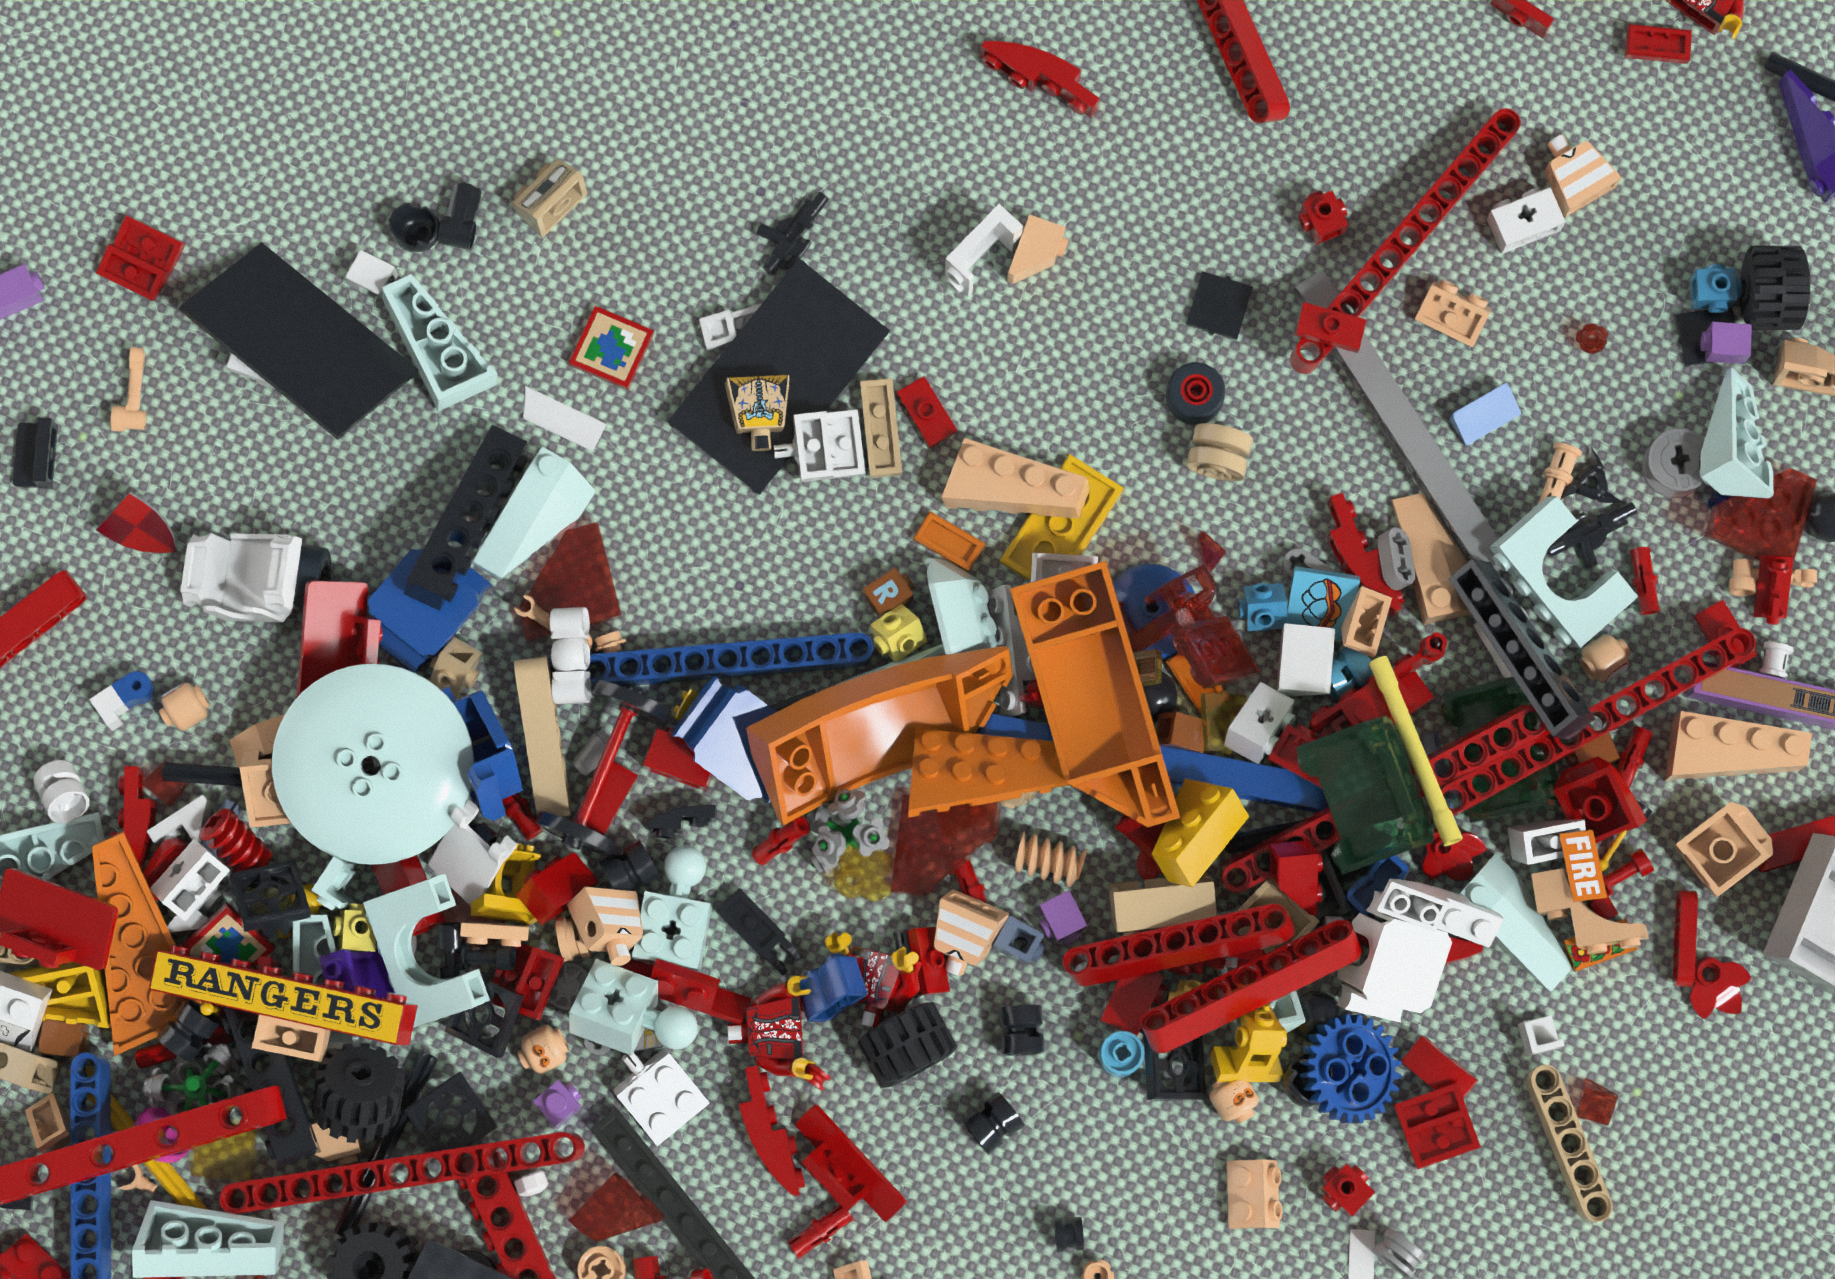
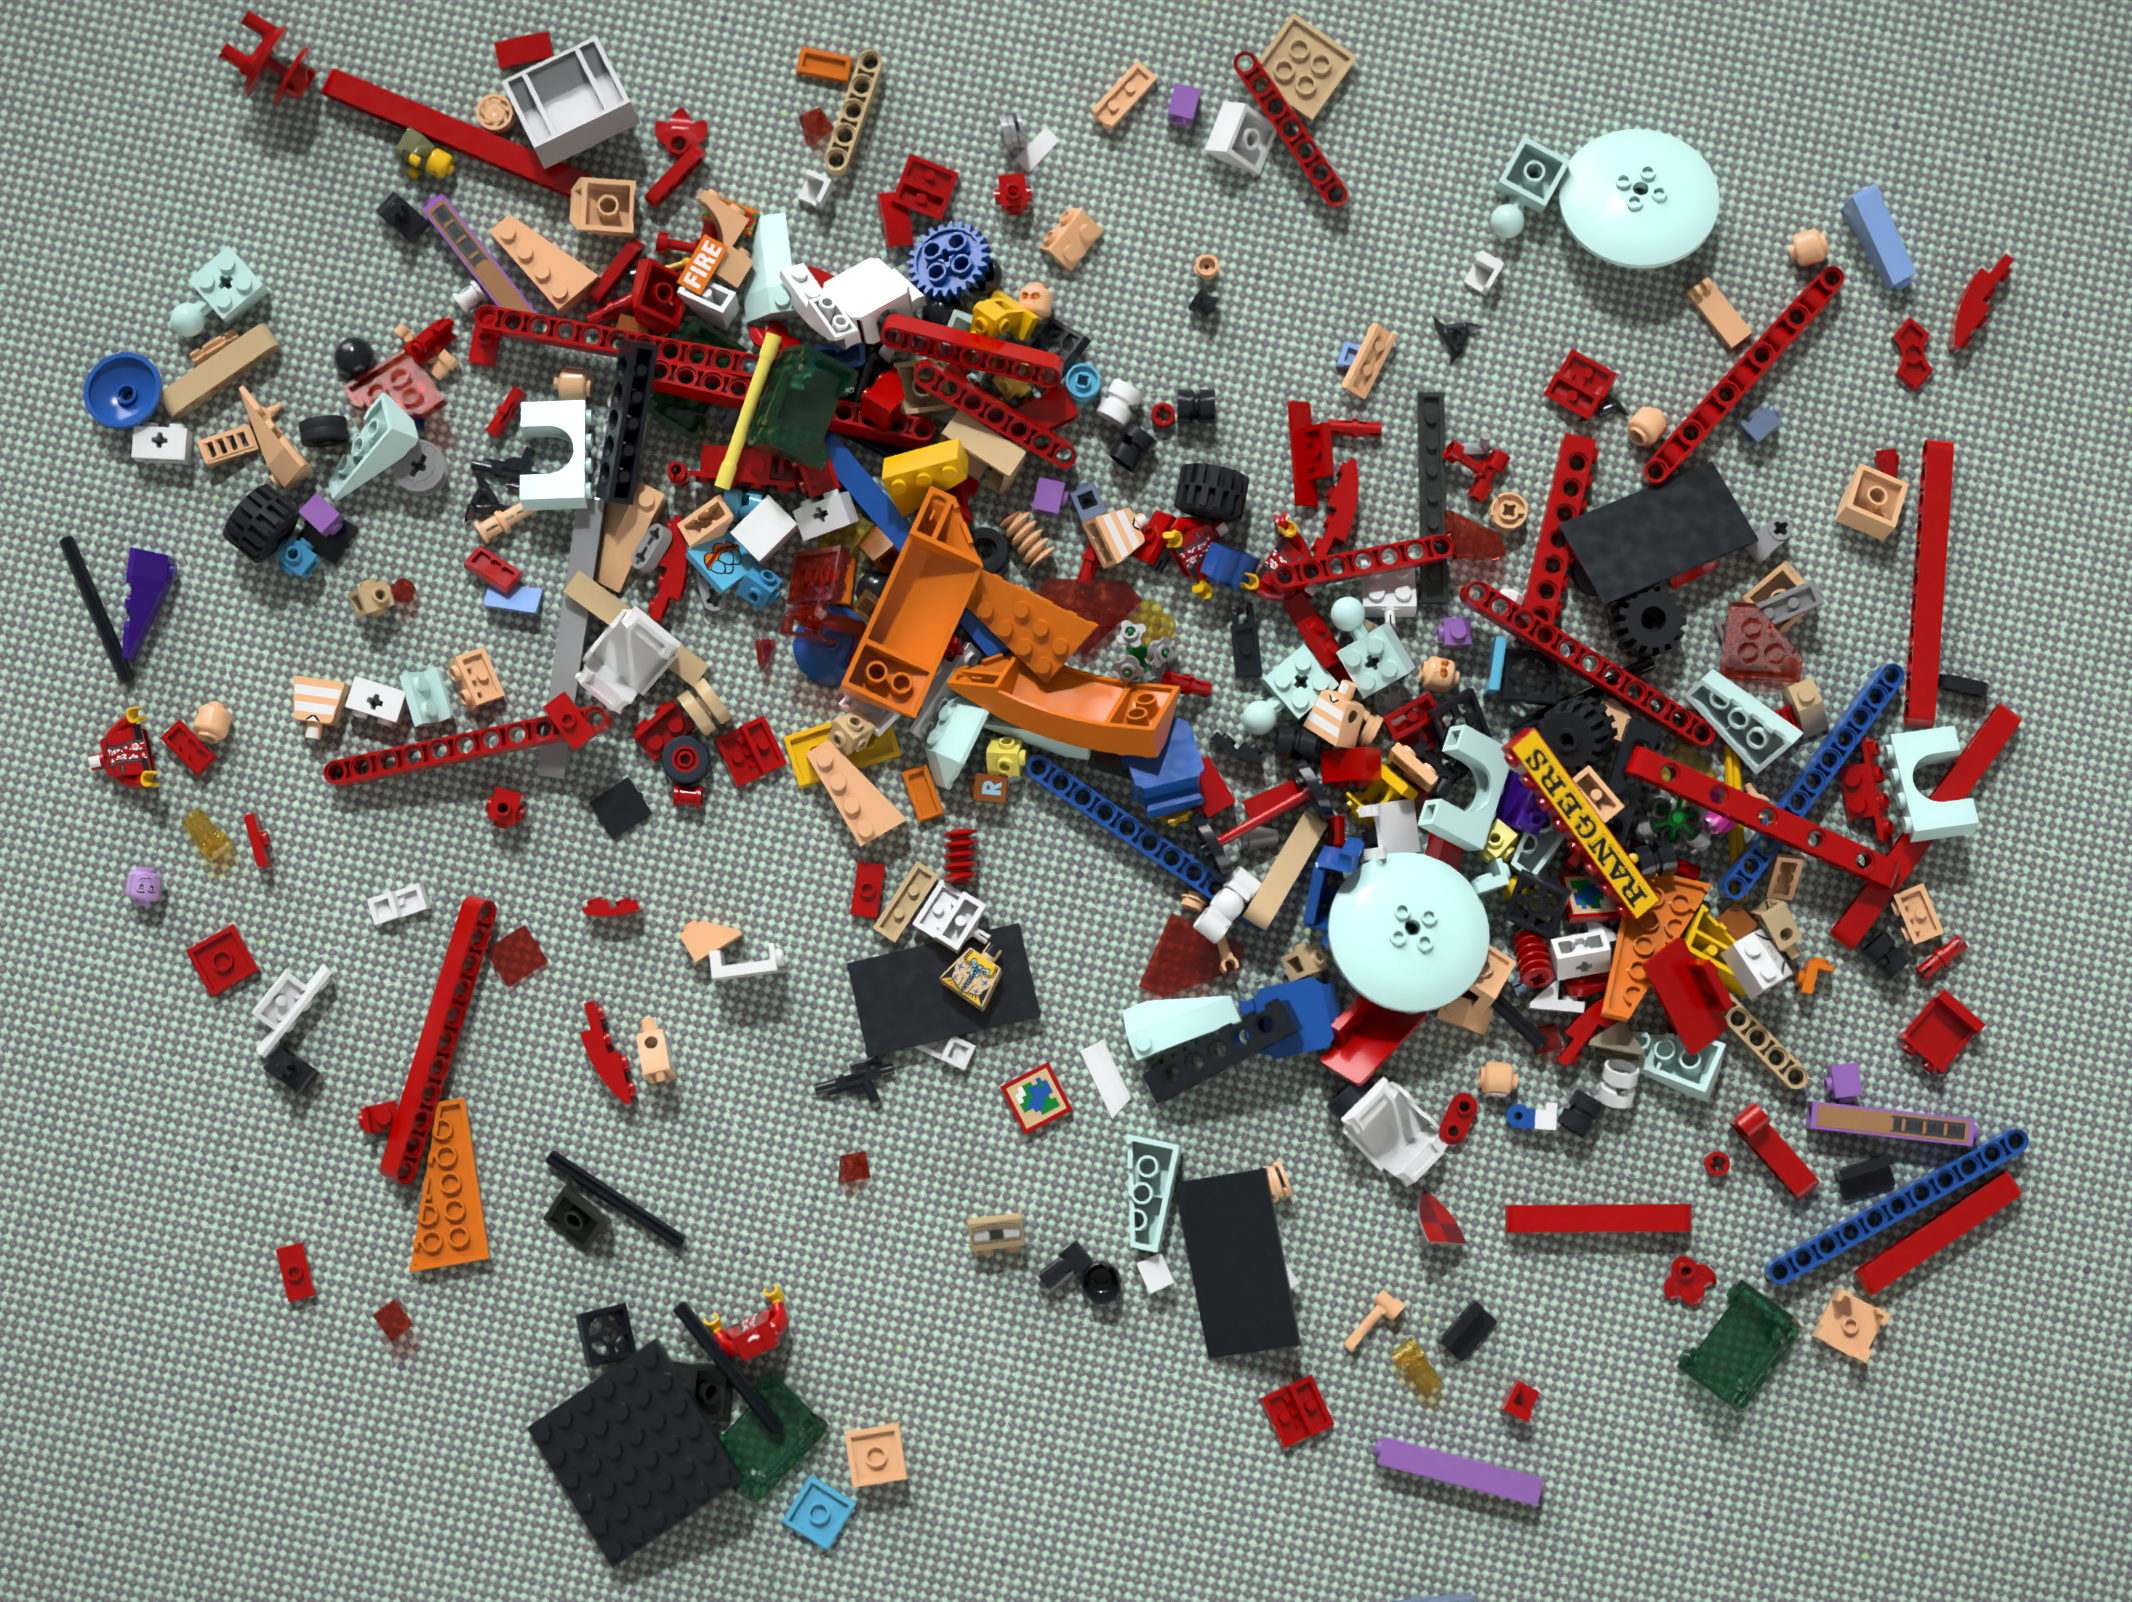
camera: 140 degrees left, 5 degrees up
(66, 385) = (1413, 1361): none -> clear yellow piece
(76, 735) = (1581, 1114): none -> black wheel
(89, 829) = (1618, 1043): none -> dark tan slope
(195, 640) = (1457, 1118): none -> red plate
(322, 444) = (1275, 1183): none -> light nougat wheel
(492, 1098) = (1494, 666): none -> medium azure tile
(688, 1101) = (1373, 557): none -> red beam
(730, 154) = (853, 1167): none -> clear red slope
(863, 509) = (959, 856): none -> red piece
(987, 101) = (656, 1062): none -> light nougat torso
(1020, 1101) = (1158, 421): none -> red bush
(1061, 533) = (851, 731): none -> tan brick
(1069, 1064) = (1118, 405): none -> white wheel
(1077, 833) = (996, 542): none -> black tyre
(1143, 450) = (750, 752): none -> red slope
(1153, 200) = (603, 908): none -> red slope
(1165, 362) = (688, 796): none -> red bush
(1199, 99) = (516, 956): none -> clear red piece
(1242, 401) = (661, 729): none -> red bracket
(1329, 433) = (627, 659): none -> white piece
(1346, 59) = (398, 904): none -> white slope
(1346, 474) = (607, 607): none -> tan tile
(1484, 257) = (427, 697): none -> light aqua bracket
(1526, 424) = (493, 570): none -> red plate
(1621, 298) = (371, 598): none -> tan brick
(1639, 1171) = (824, 65): none -> orange tile
(1657, 81) = (212, 722): none -> light nougat head
(1660, 799) = (616, 271): none -> red beam
(1795, 421) = (323, 431): none -> black tyre

